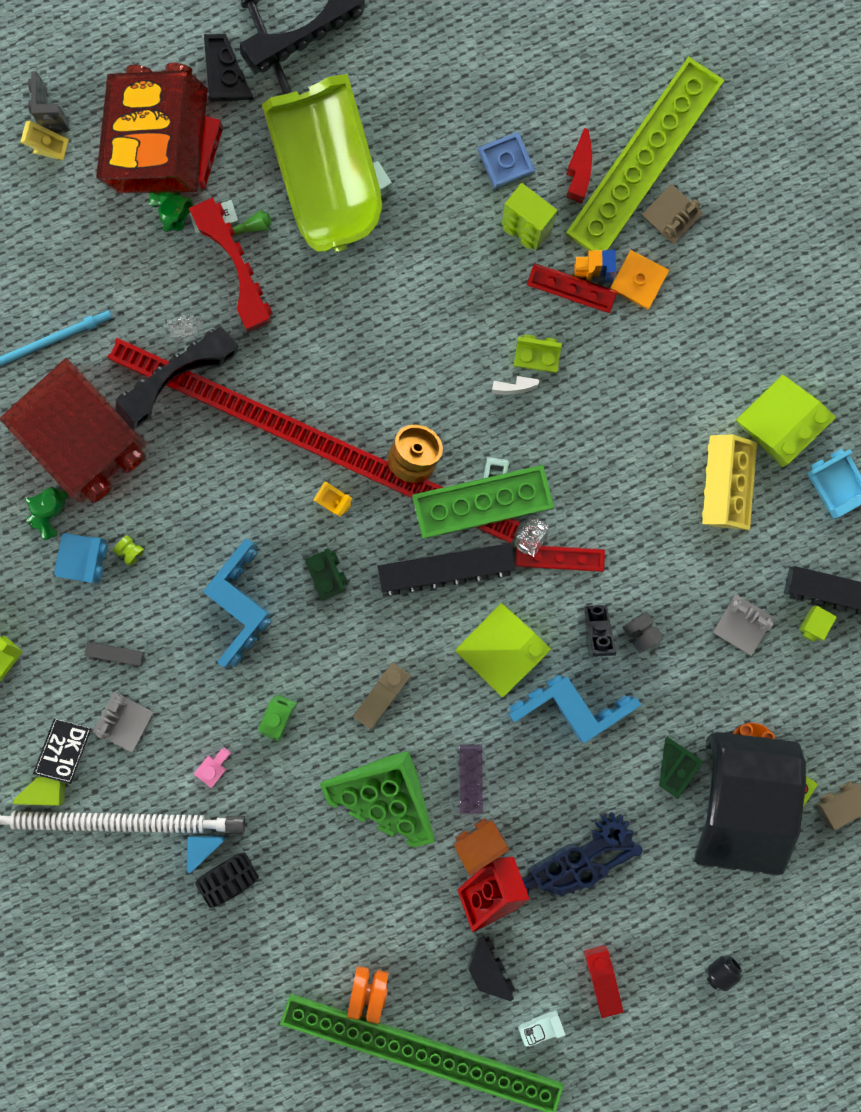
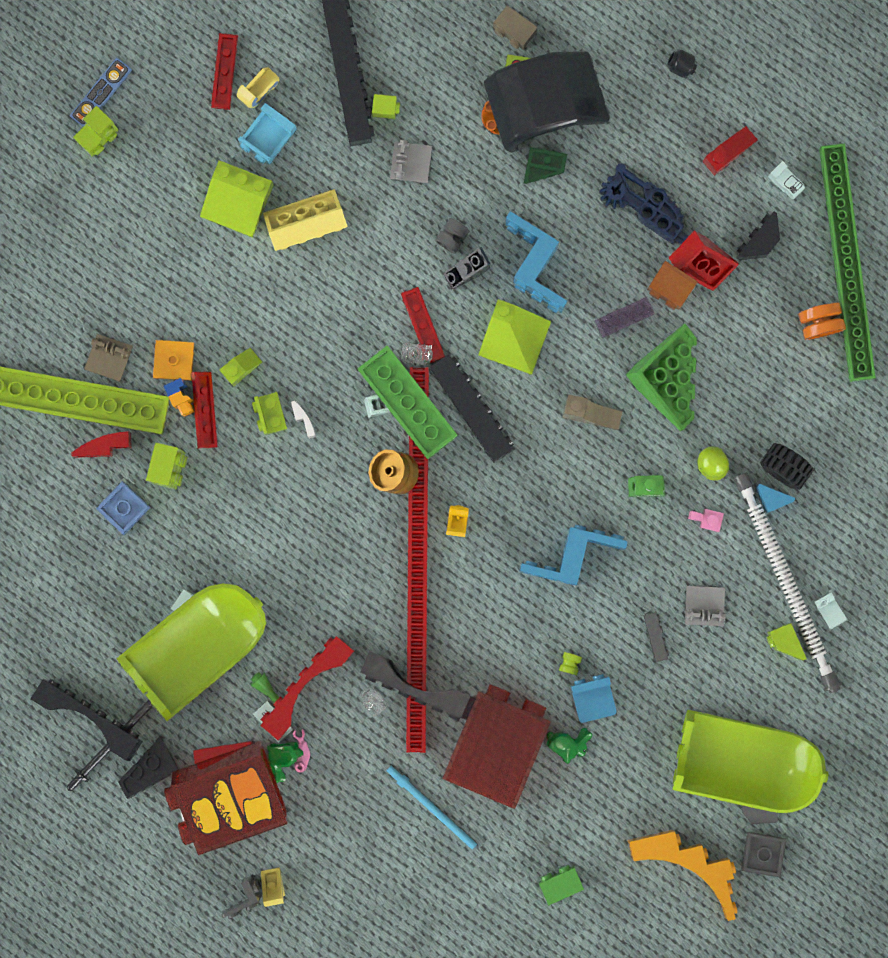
camera: 110 degrees left, 0 degrees up
(52, 855) = (830, 611): none -> light aqua bracket
(62, 751) = (749, 641): black sticker -> none
(173, 236) = (302, 762): none -> bright pink arm
(269, 801) = (713, 463): none -> lime helmet
(325, 574) = (518, 500): dark green bracket -> none
(601, 345) = (240, 366): none -> lime slope

